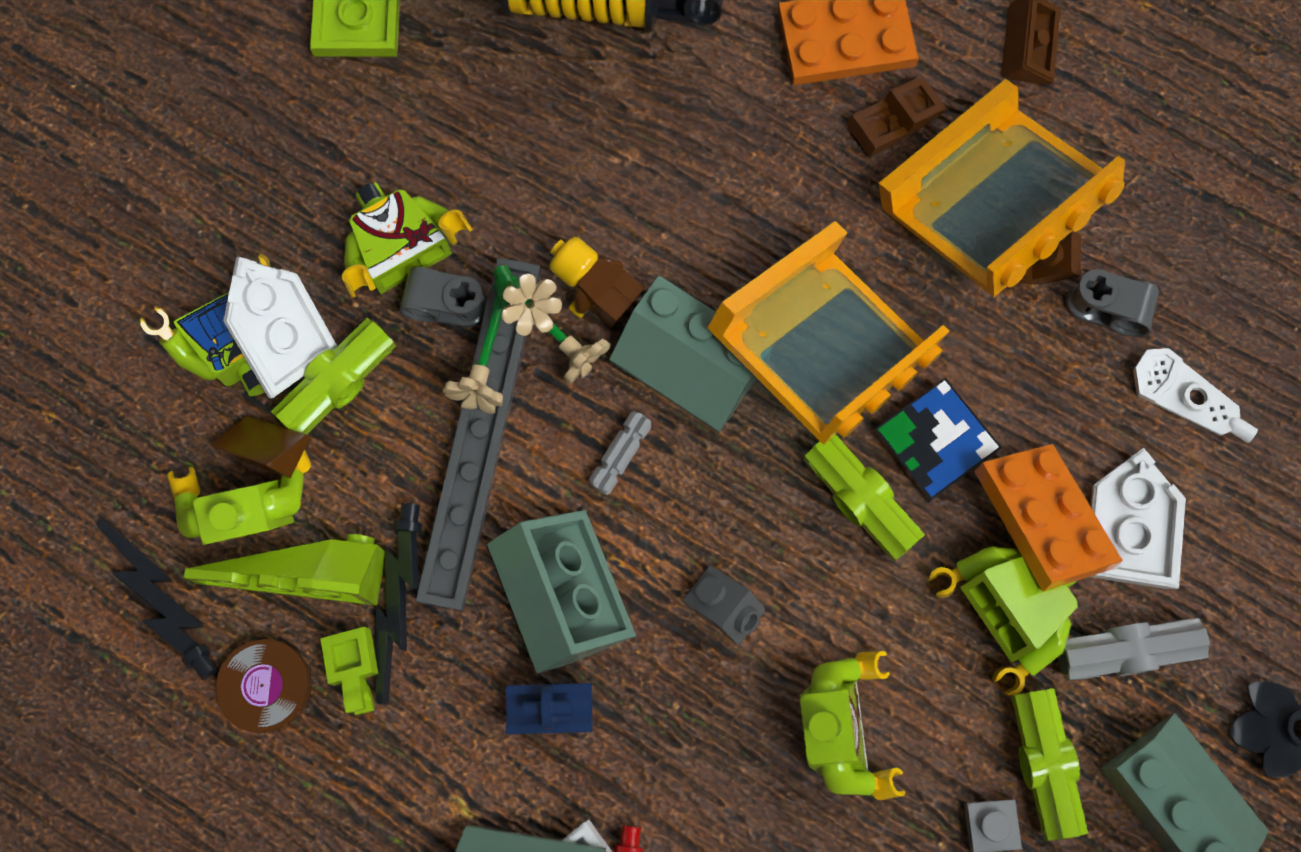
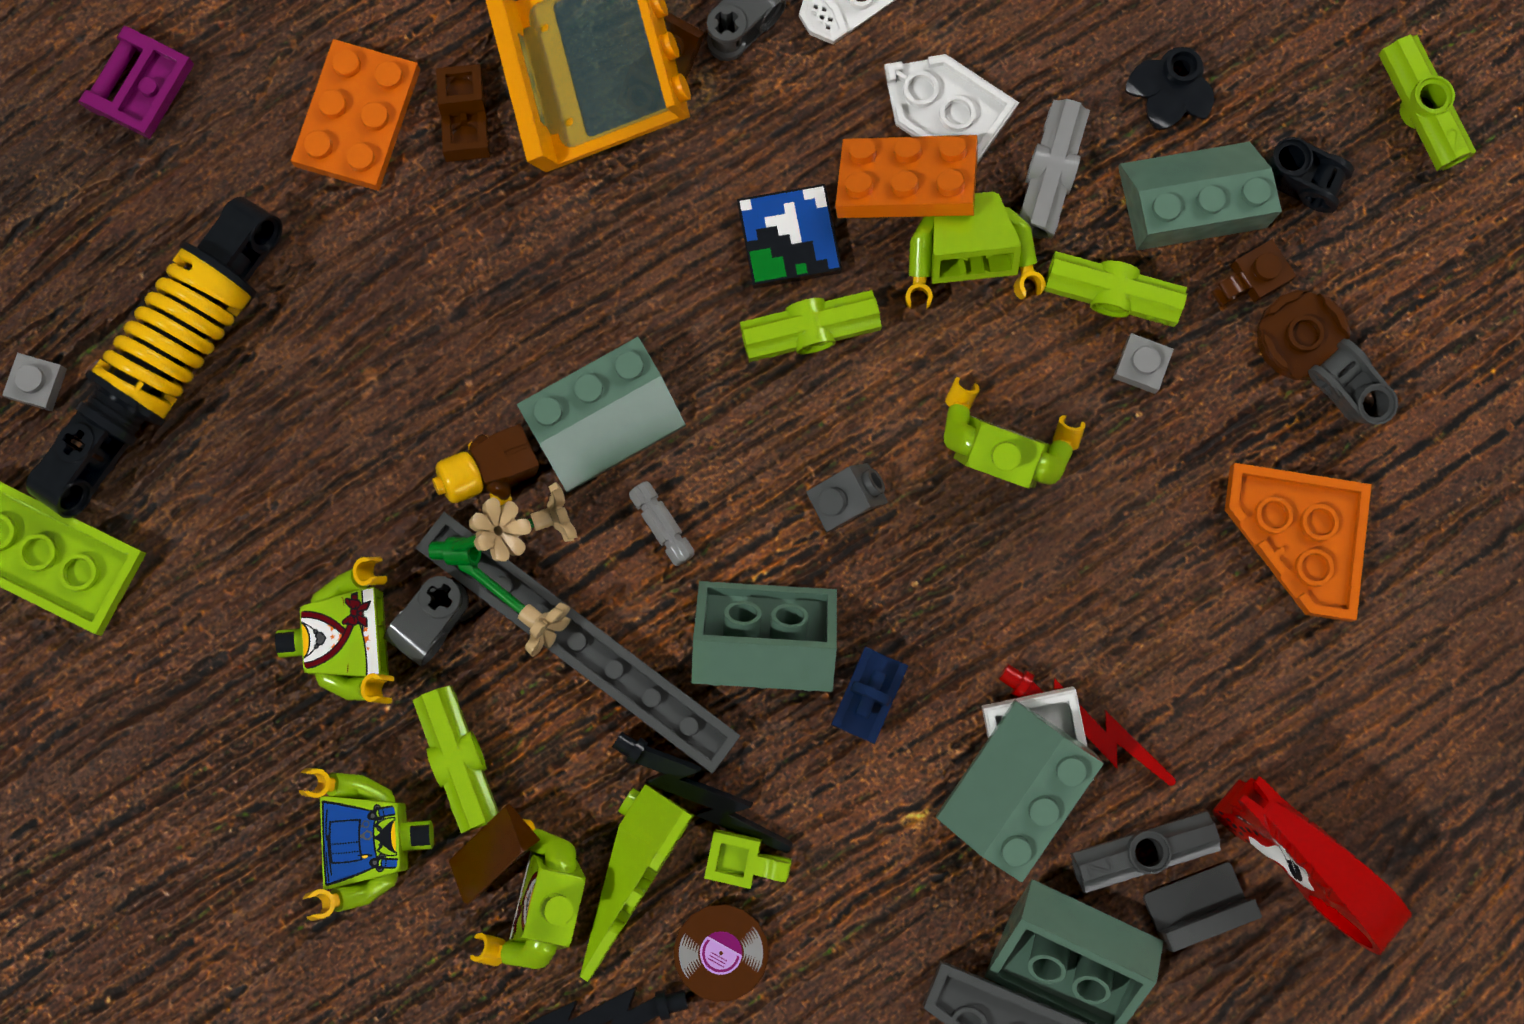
camera: 70 degrees left, 5 degrees up
(274, 324) = (381, 788): white tile -> none
(821, 338) = (654, 285): panel -> none

